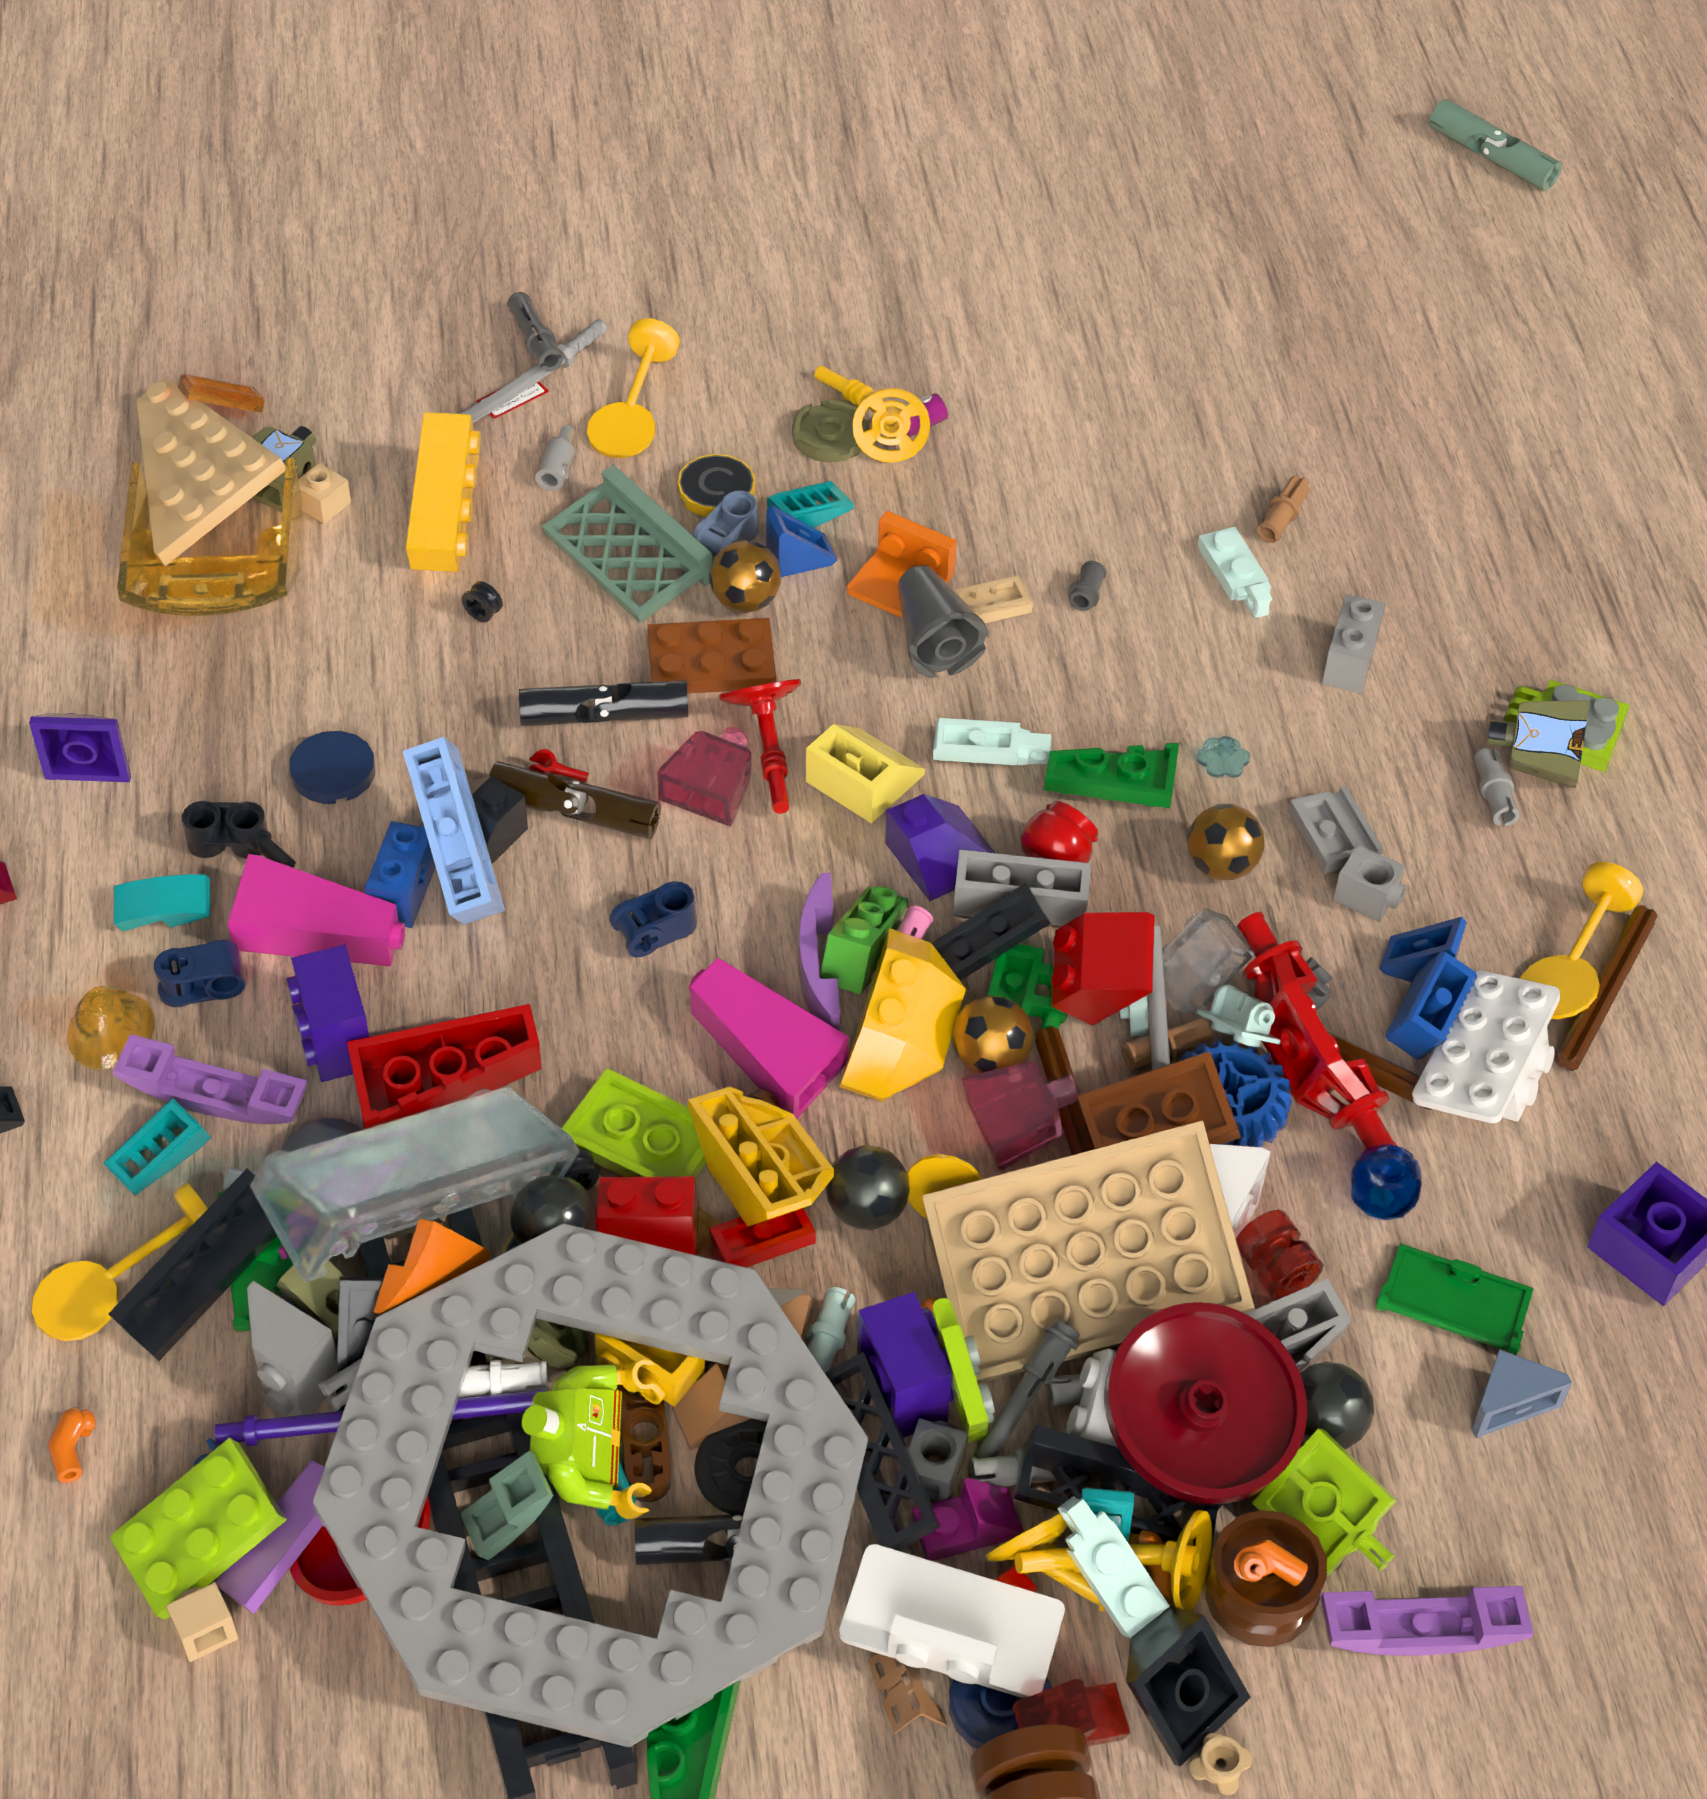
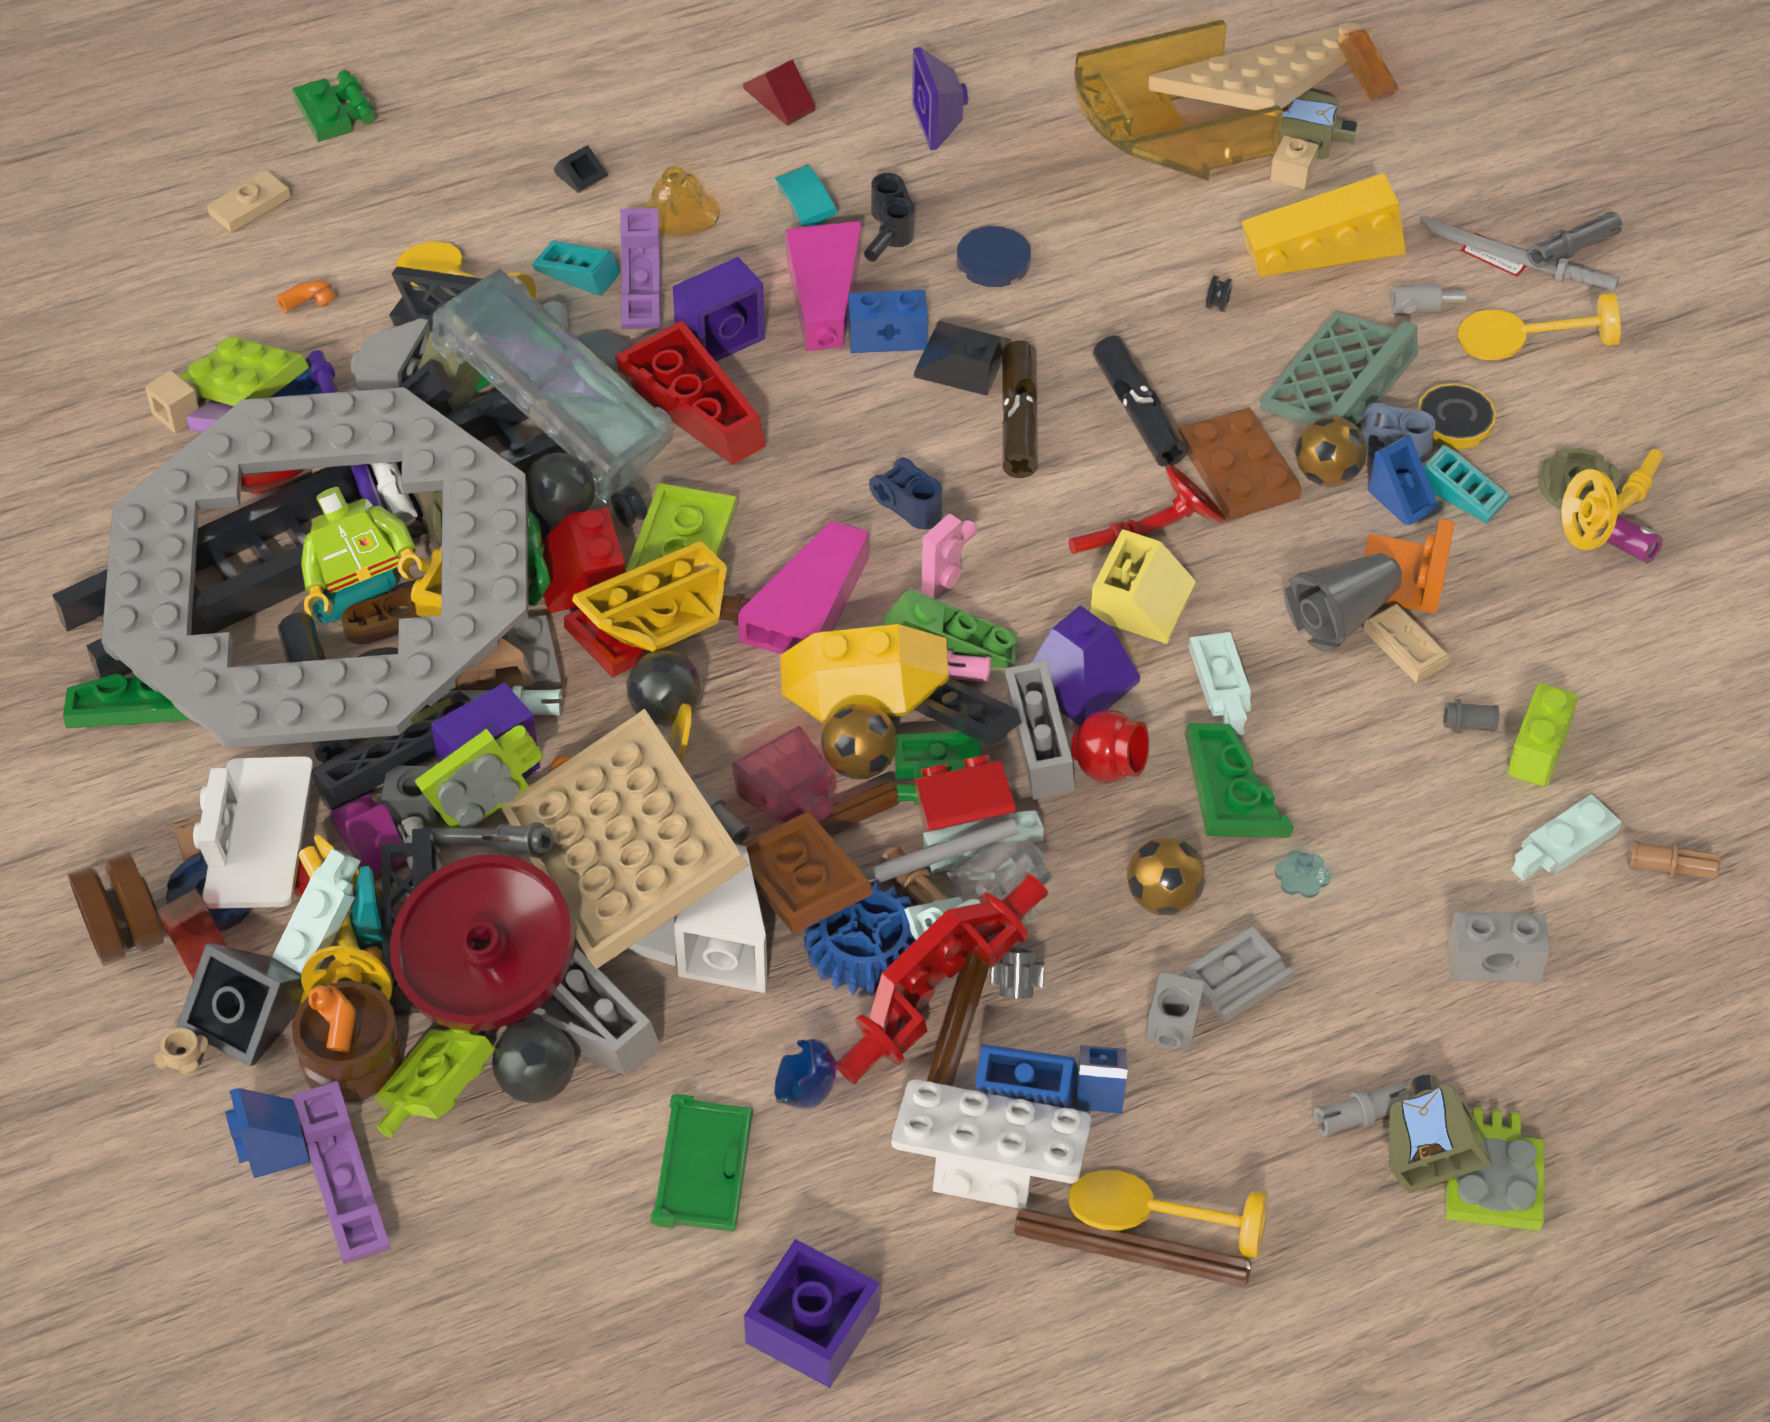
camera: 75 degrees right, 0 degrees up
(202, 971) = (744, 234): dark blue piece -> none
(432, 1260) = (470, 408): orange slope -> none
(453, 831) = (923, 325): light blue brick -> none
(509, 1508) = (284, 523): sand green slope -> none
(548, 764) = (1053, 392): red hand -> none
(708, 775) = (1089, 489): clear pink torso -> none
(773, 901) = (942, 554): none -> bright pink plate
(817, 919) = (962, 592): medium lavender slope -> none
(1130, 541) = (1542, 734): none -> lime brick
(1275, 1250) = (697, 998): clear red wheel -> none
(1369, 1679) = (265, 1132): none -> blue slope
(1518, 1392) = (598, 1213): sand blue slope -> none

